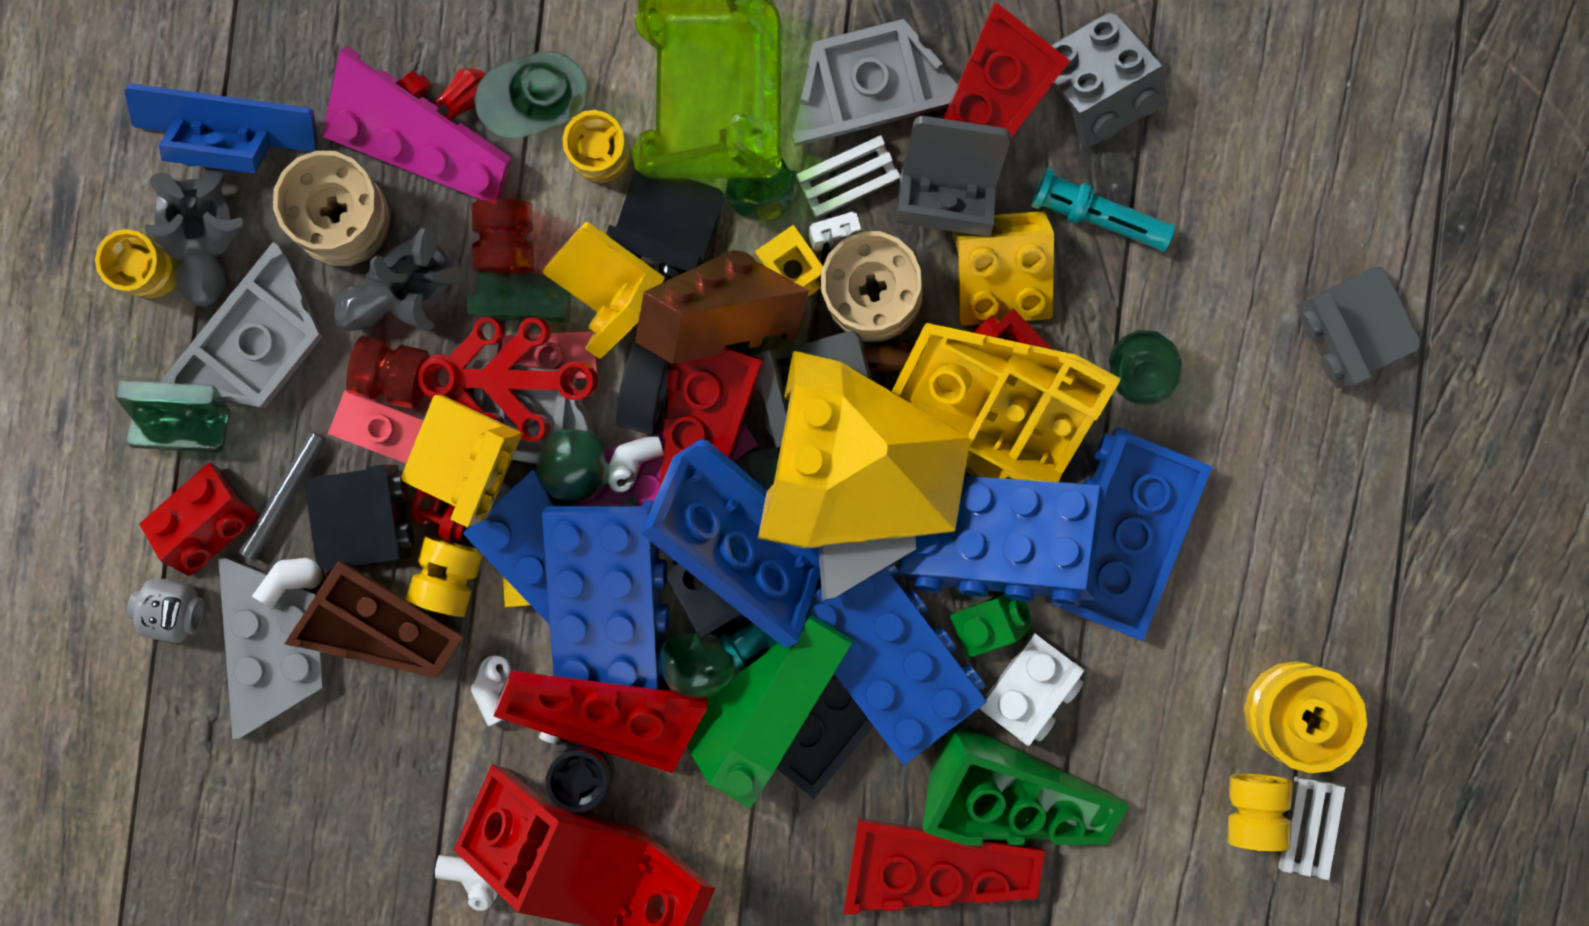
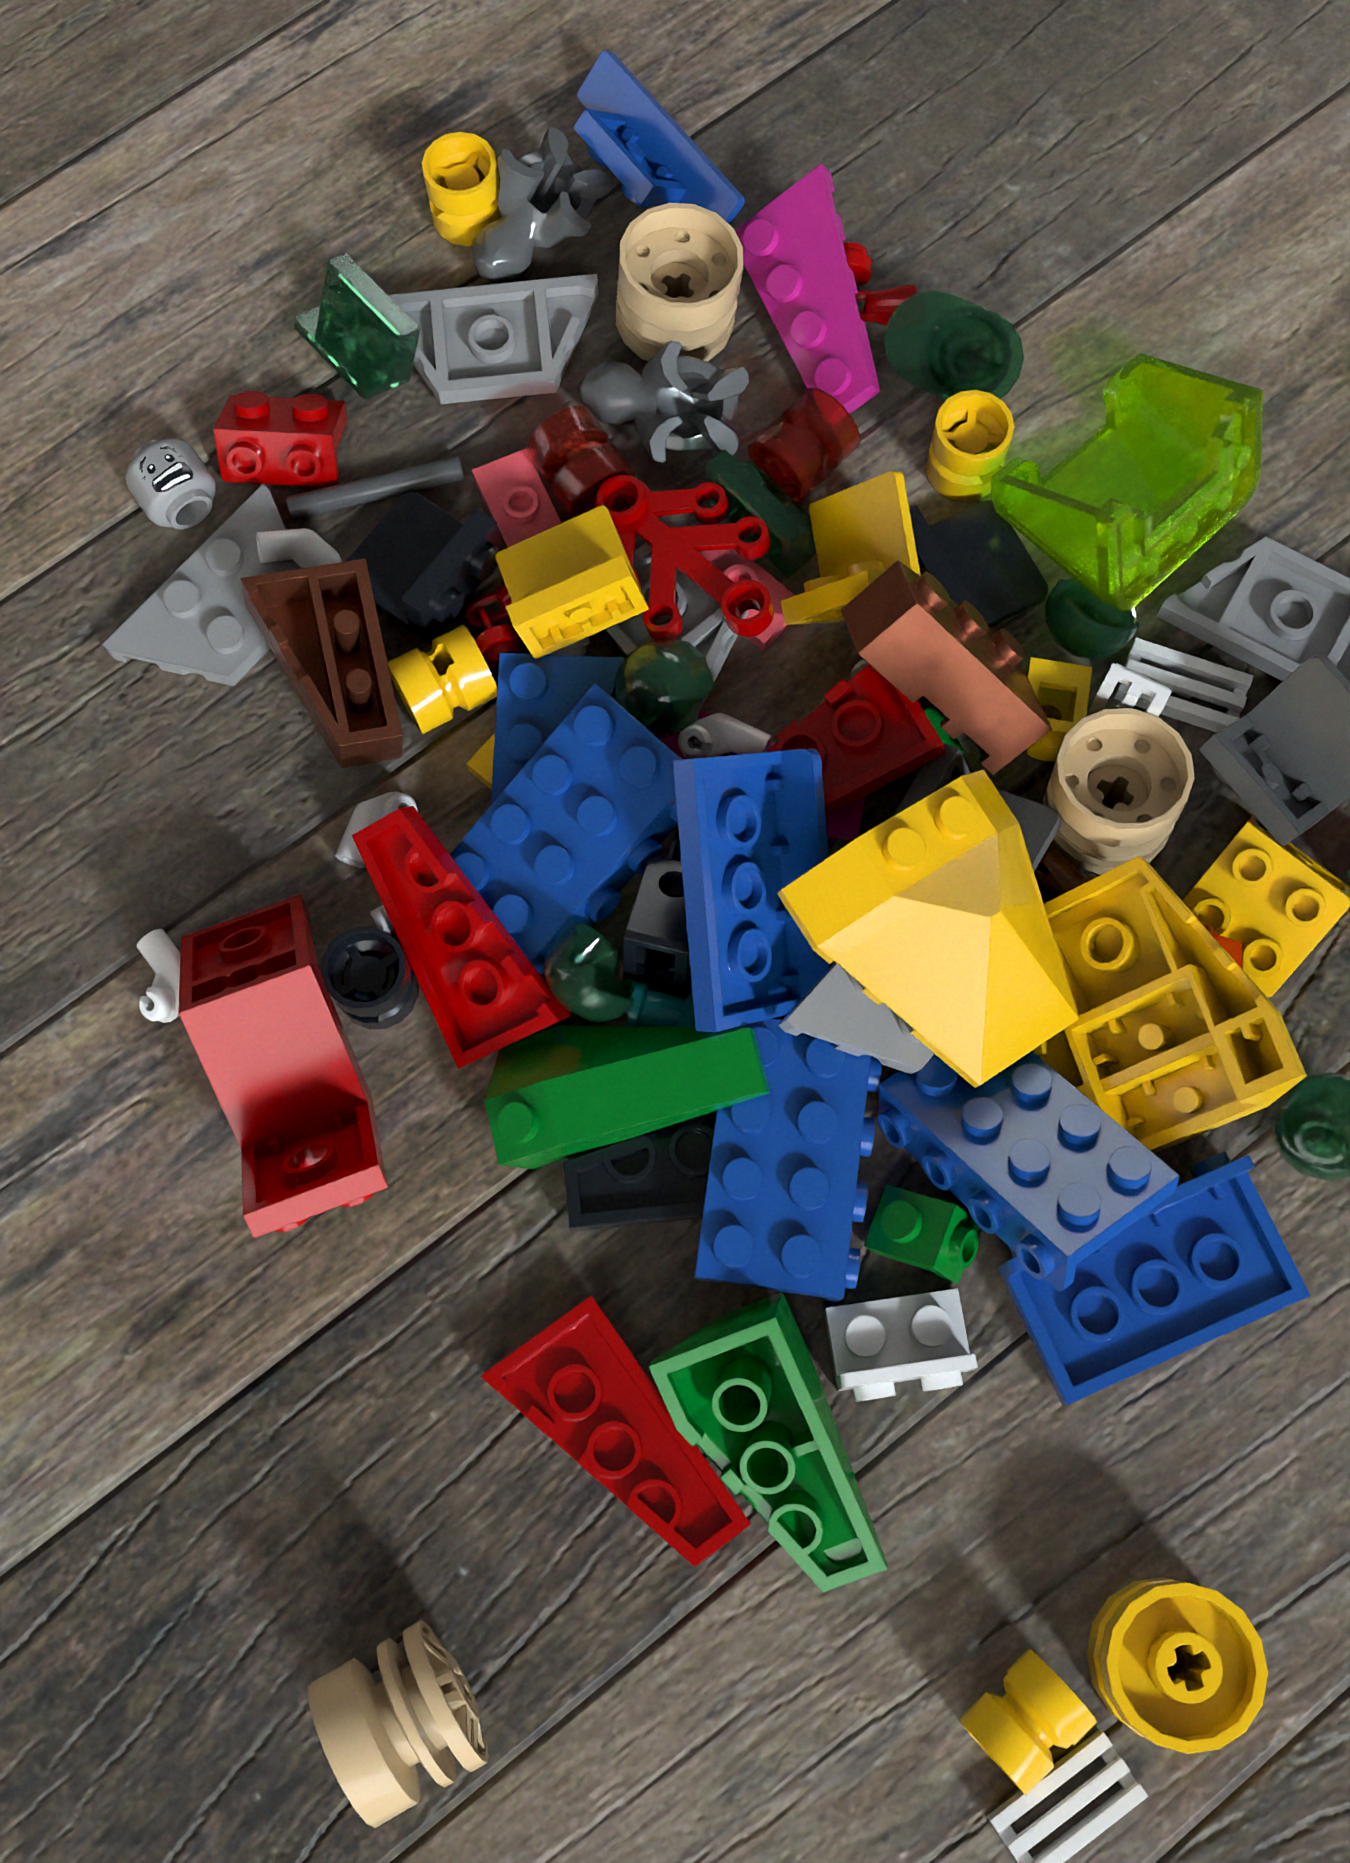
camera: 50 degrees right, 15 degrees down
(642, 391) = (797, 676): black tyre -> none

